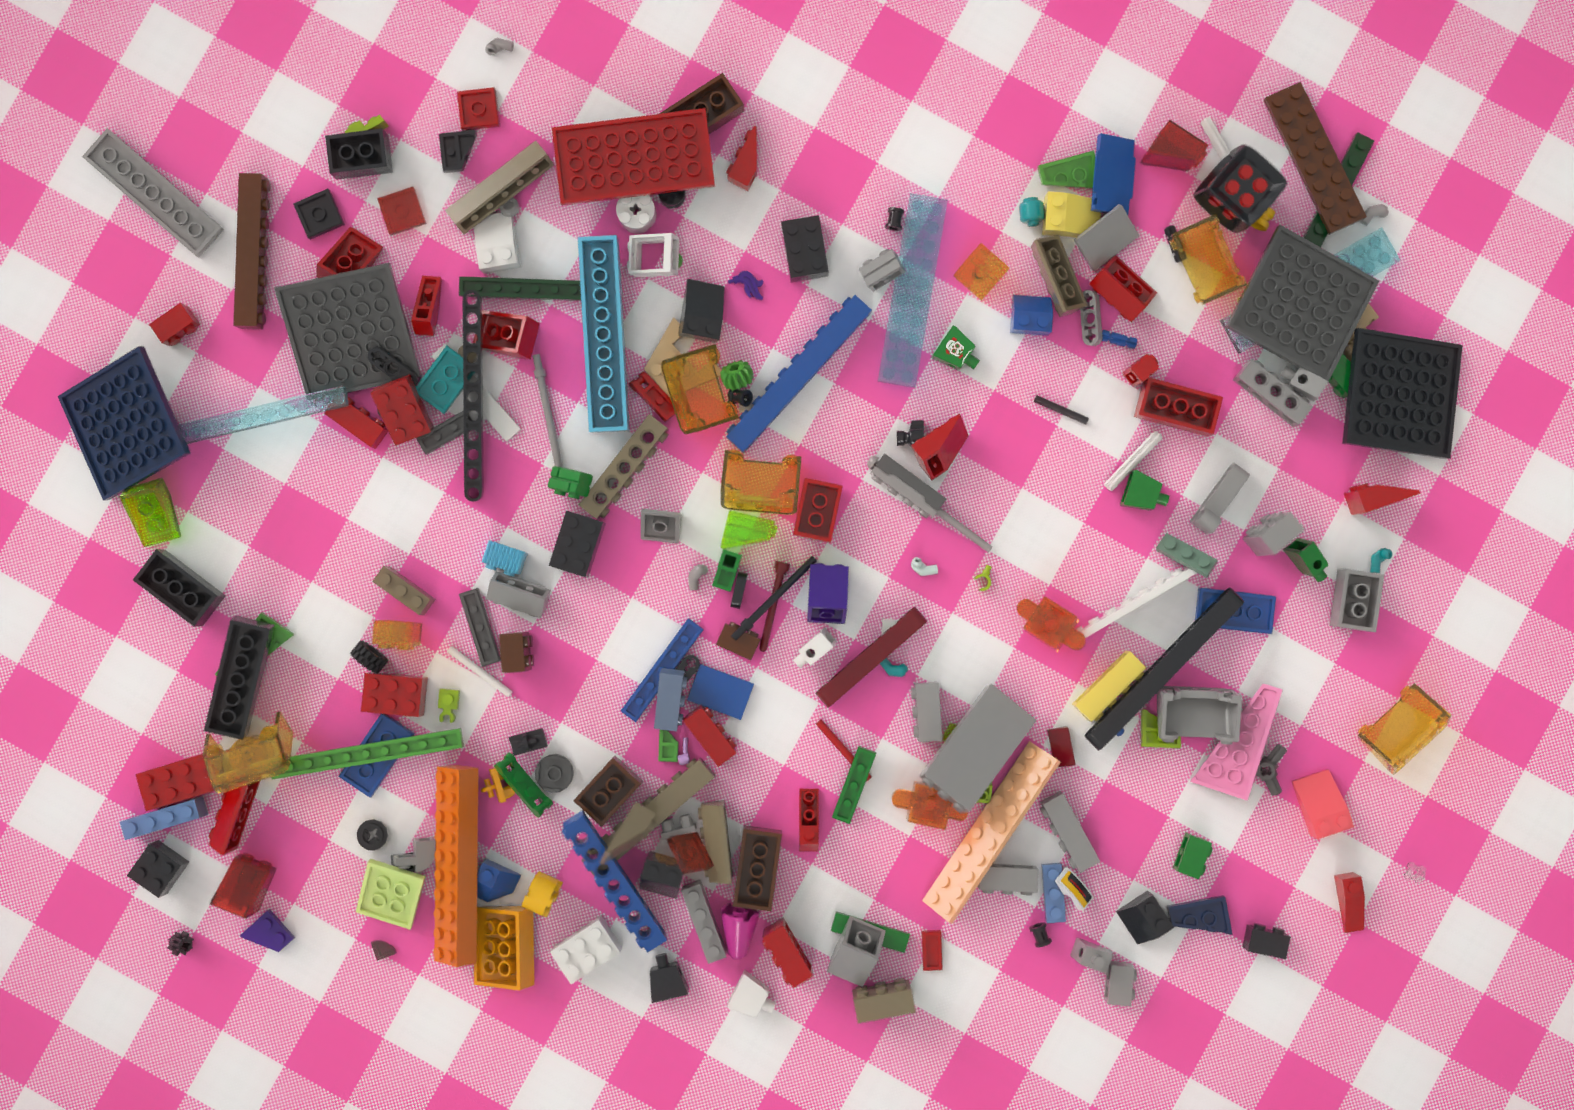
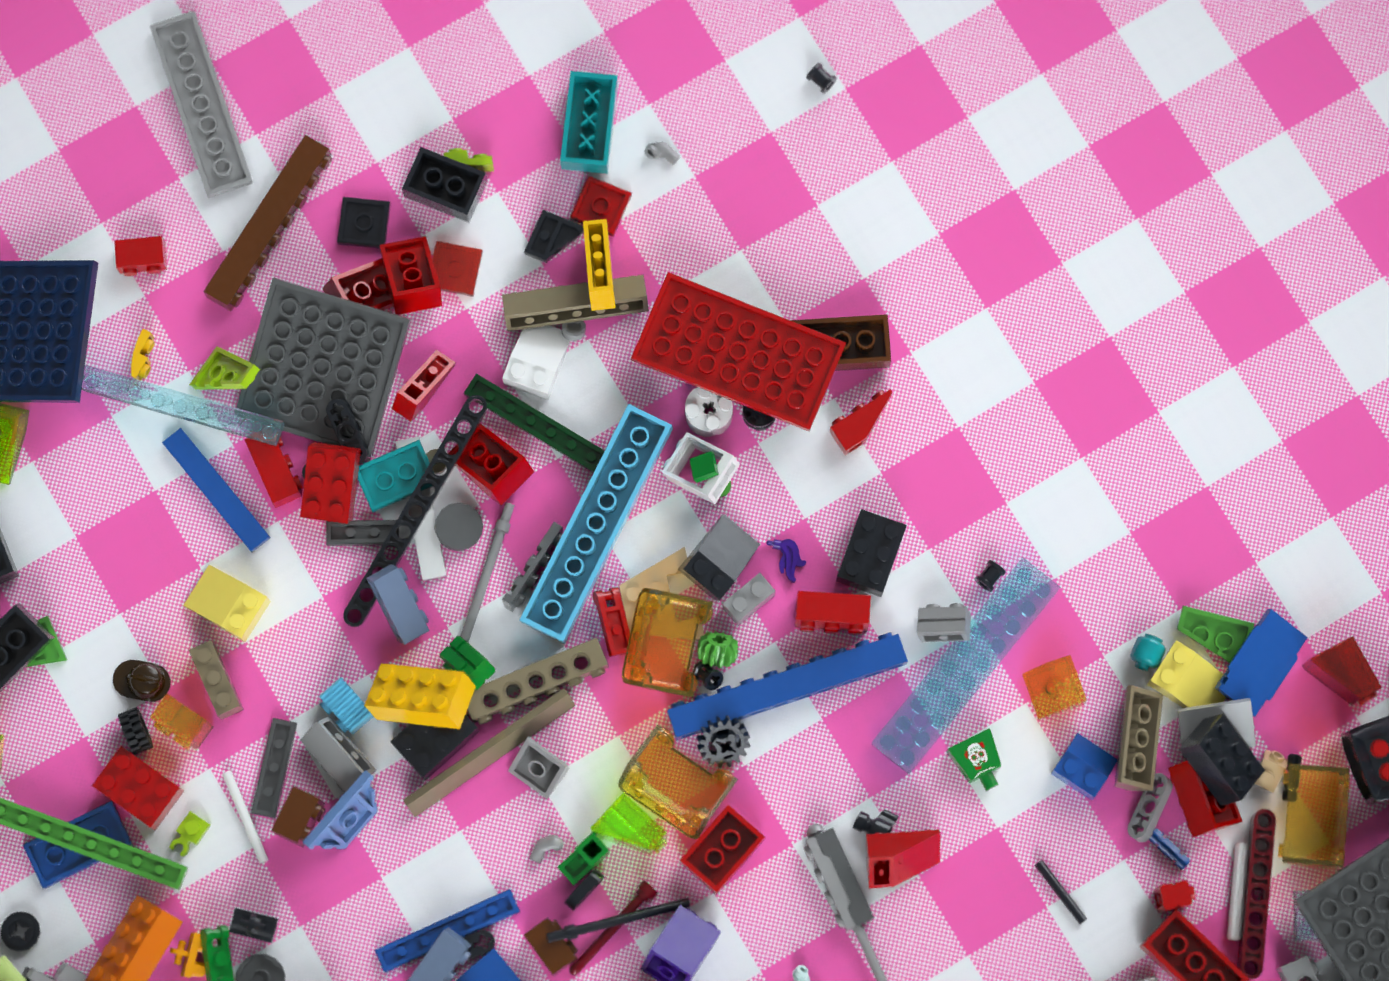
camera: 30 degrees right, 10 degrees down
(215, 387) = (140, 363): none -> yellow slope
(282, 374) = (224, 371): none -> lime wing
(326, 459) = (216, 490): none -> blue tile
(353, 619) = (141, 680): none -> dark brown piece
(373, 232) = (411, 275): none -> red slope
(381, 533) = (227, 603): none -> light yellow slope
(434, 52) = (589, 122): none -> teal brick
(498, 467) = (398, 603): none -> sand blue brick
(500, 150) = (599, 264): none -> yellow brick
(509, 390) = (458, 526): none -> dark grey tile
(548, 633) = (346, 817): none -> medium blue wing
(550, 522) = (420, 695): none -> yellow brick
(577, 390) = (532, 567): none -> dark grey wing
(620, 534) = (489, 752): none -> dark tan tile
(655, 252) = (704, 467): none -> green tile
(738, 328) = (748, 599): none -> light grey brick
(776, 435) = (725, 733): none -> black gear
(801, 304) = (832, 612): none -> red brick
(1124, 257) = (1222, 759): none -> black brick
(1158, 247) = (1274, 766): none -> tan bracket
(1180, 342) = (1237, 891): none -> white axle
(1194, 327) = (1262, 883): none -> dark red beam

